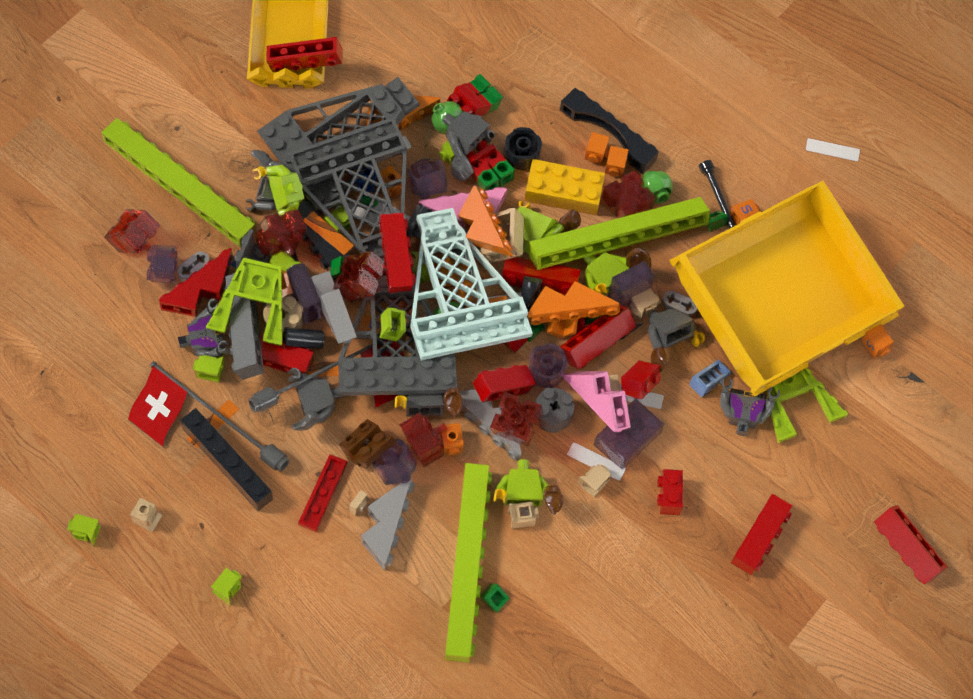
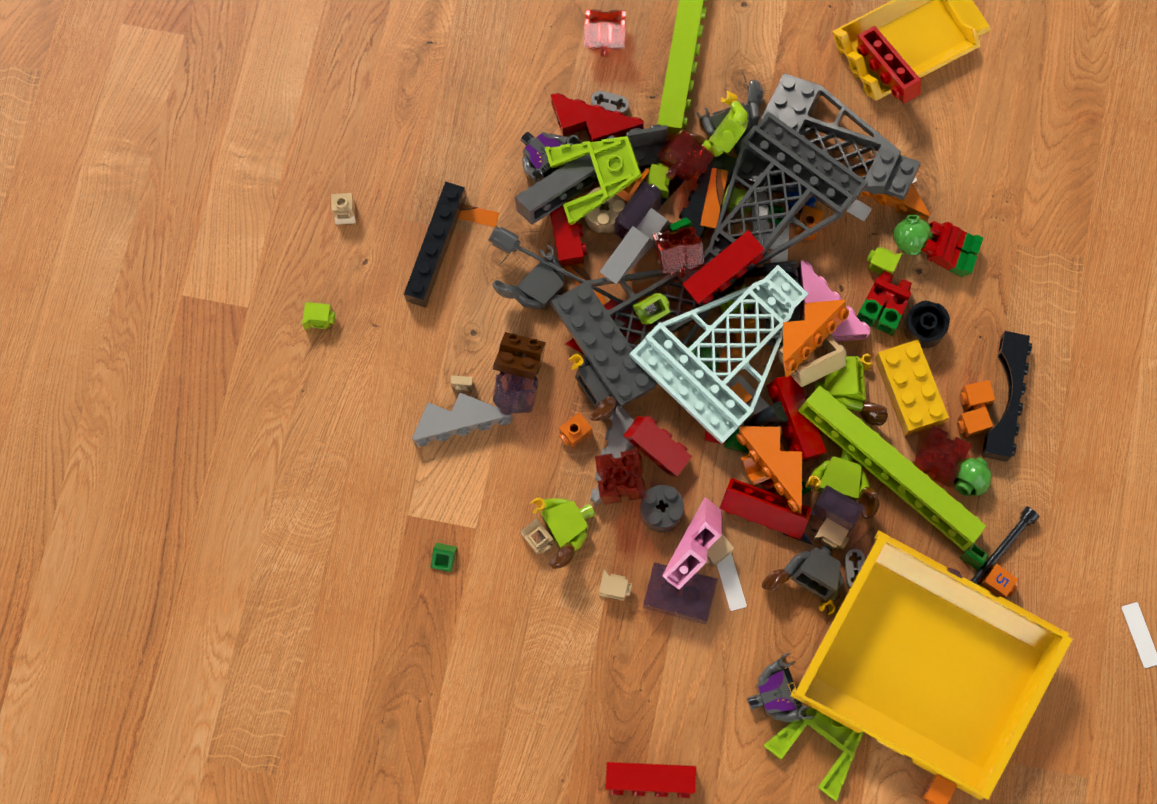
camera: 70 degrees right, 10 degrees up
(84, 528) = (301, 166): lime window -> none
(162, 403) = (459, 158): flag -> none
(163, 263) = (590, 74): brick -> none
(209, 368) = (516, 176): lime window -> none
(303, 338) = (592, 239): black brick -> none
(322, 493) = (456, 346): red tile -> none
(424, 438) = (554, 403): clear red brick -> none
(427, 178) = (832, 253): brick -> none
(463, 136) = (899, 260): dark grey torso -> none
(467, 563) = (461, 512): lime brick -> none
(545, 355) = (714, 471): brick -> none
(591, 458) = (637, 577): white sticker -> none
(640, 379) = (741, 573): red brick -> none
(671, 492) = (643, 666): red brick -> none
(701, 386) = (774, 641): medium blue slope -> none

